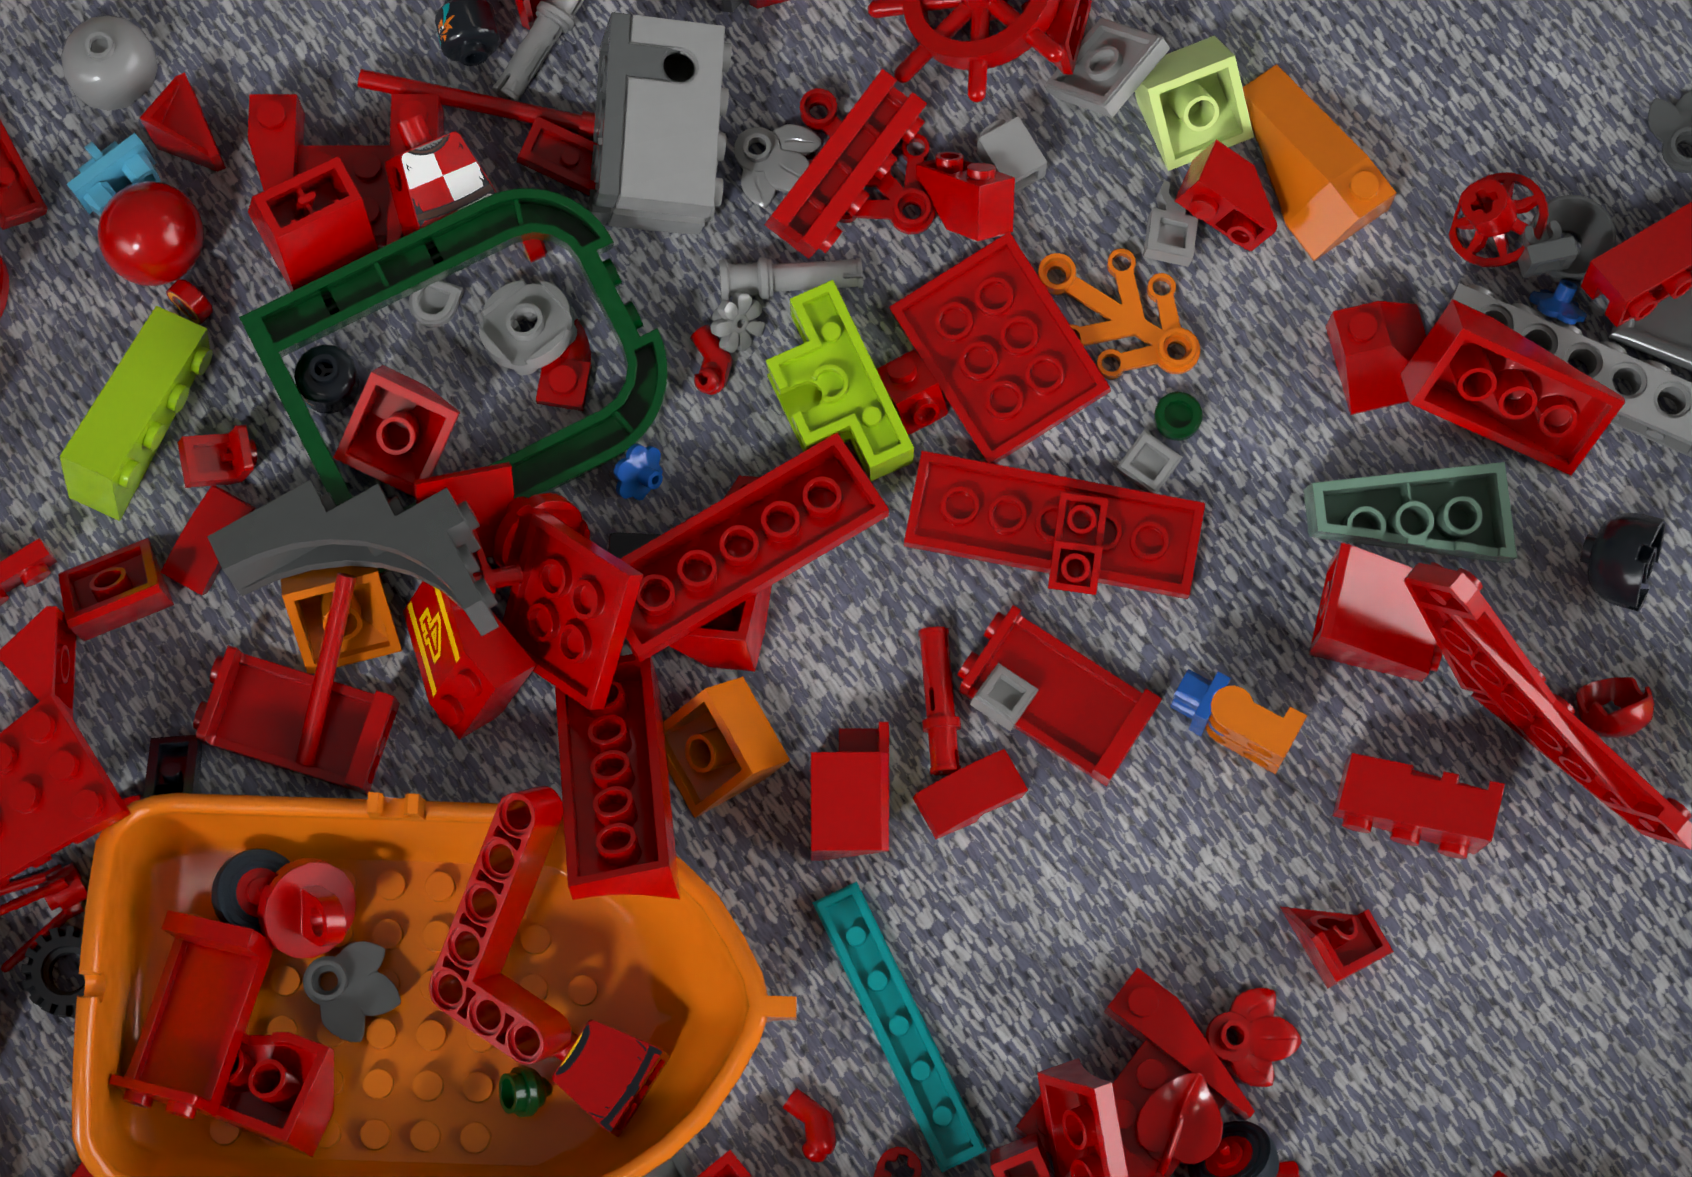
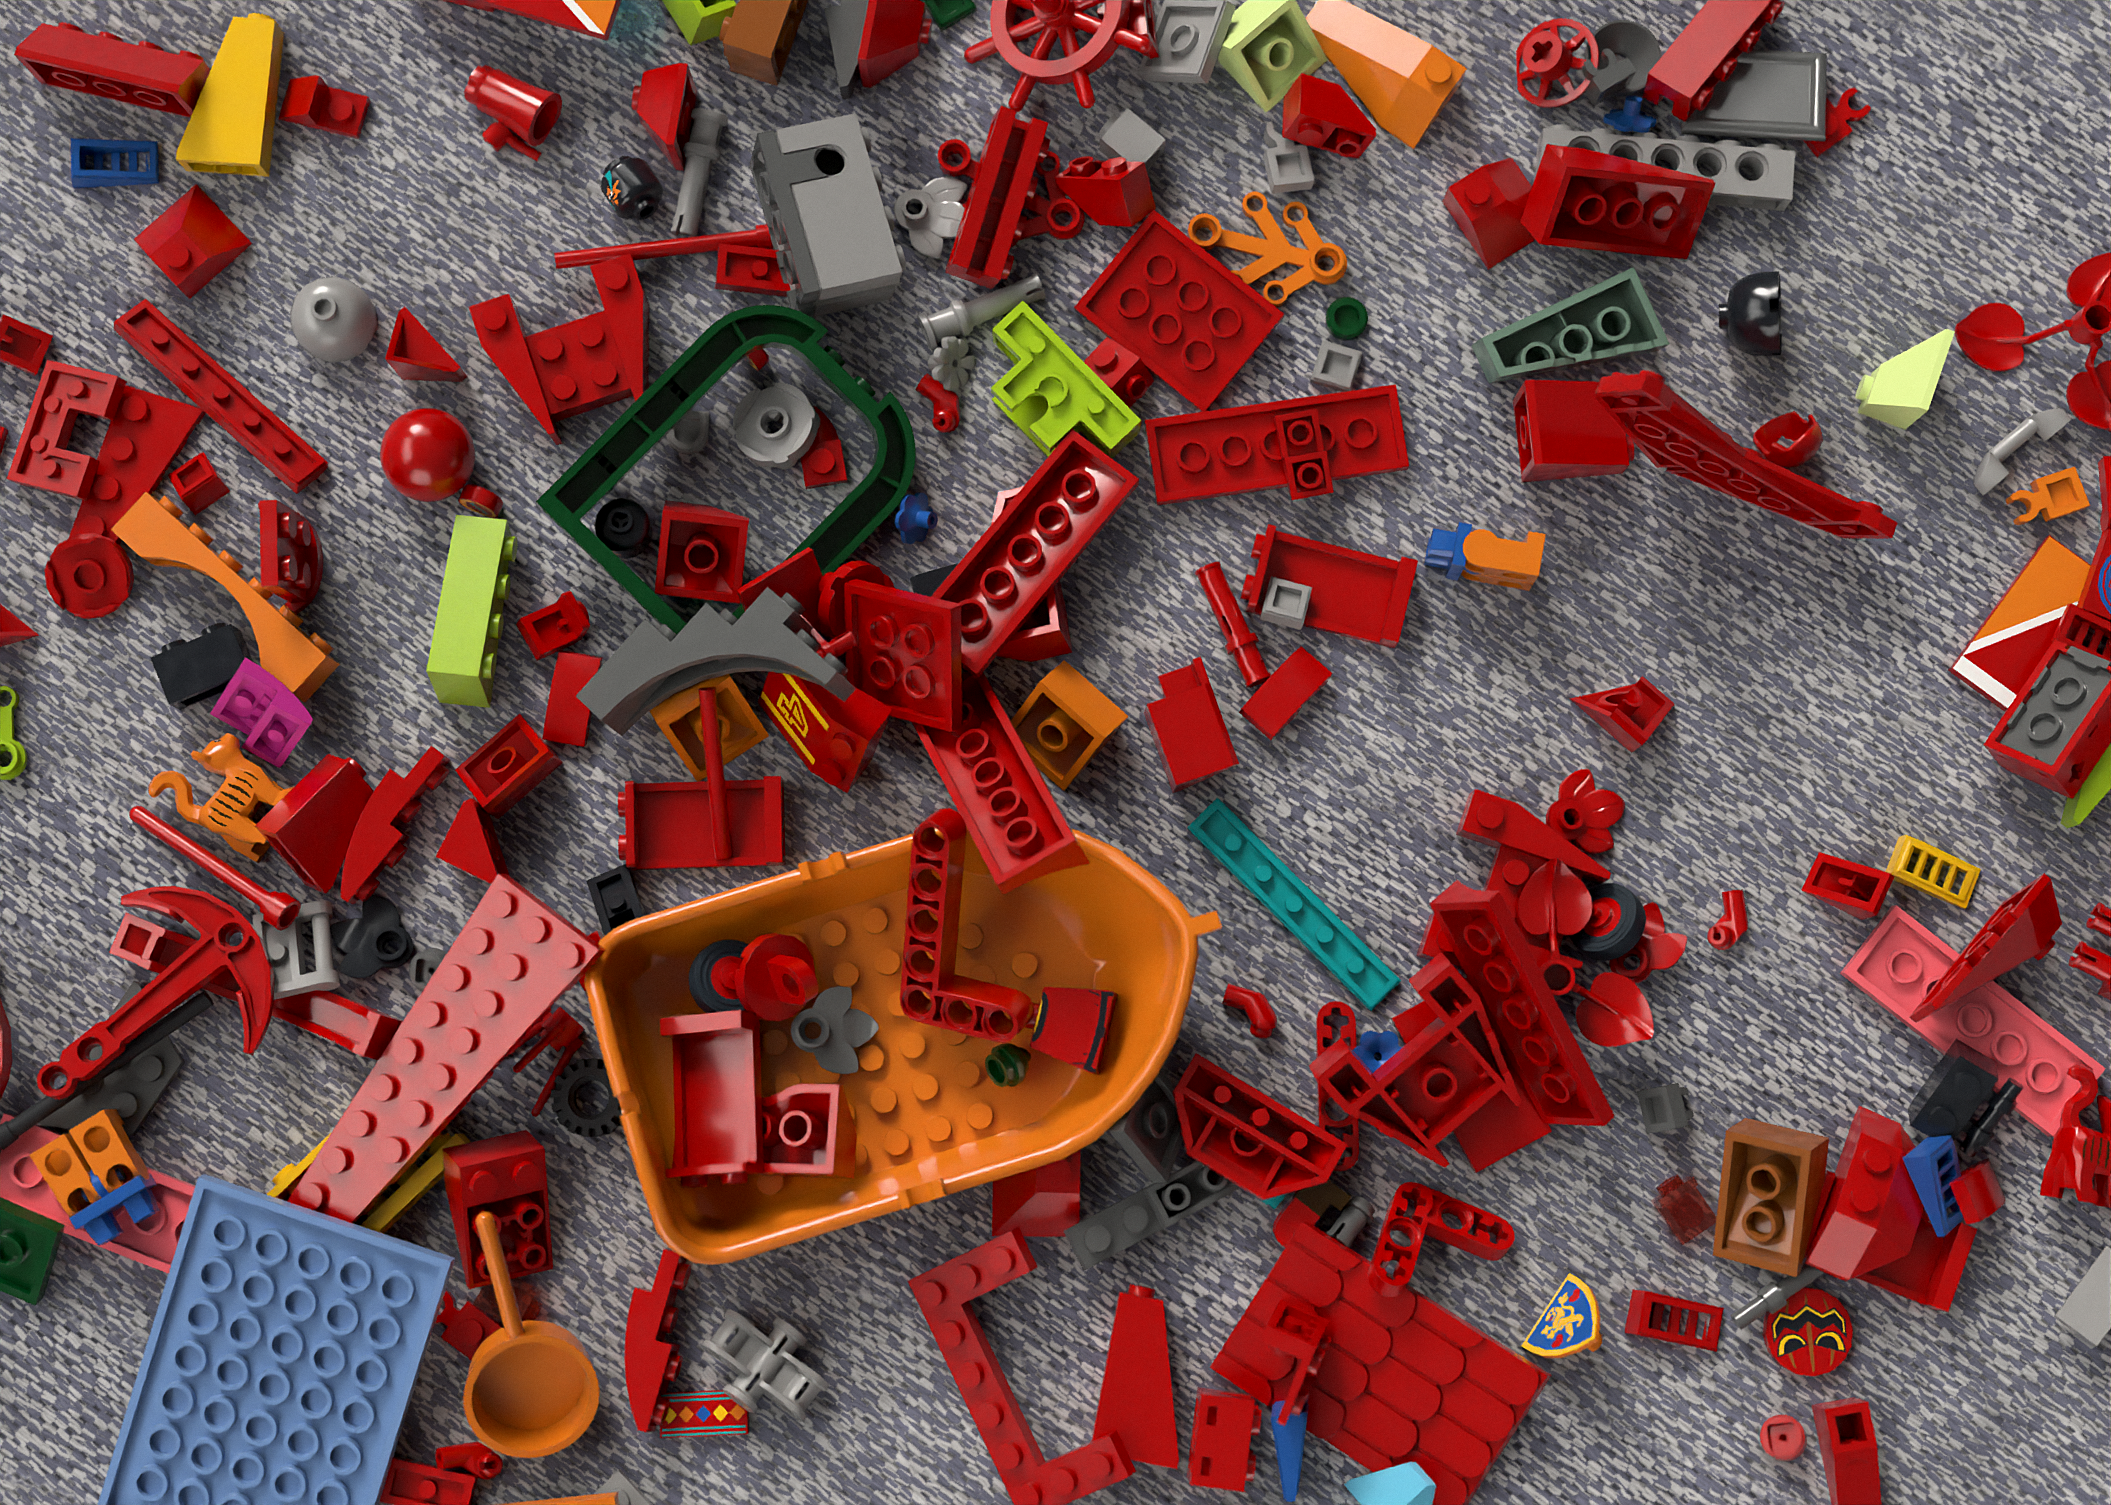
camera: 20 degrees left, 5 degrees up
(111, 171) = (371, 412): medium azure hips -> none
(313, 223) = (568, 401): red slope -> none
(433, 176) = (654, 326): torso -> none
(1417, 805) = (1656, 577): red wedge -> none

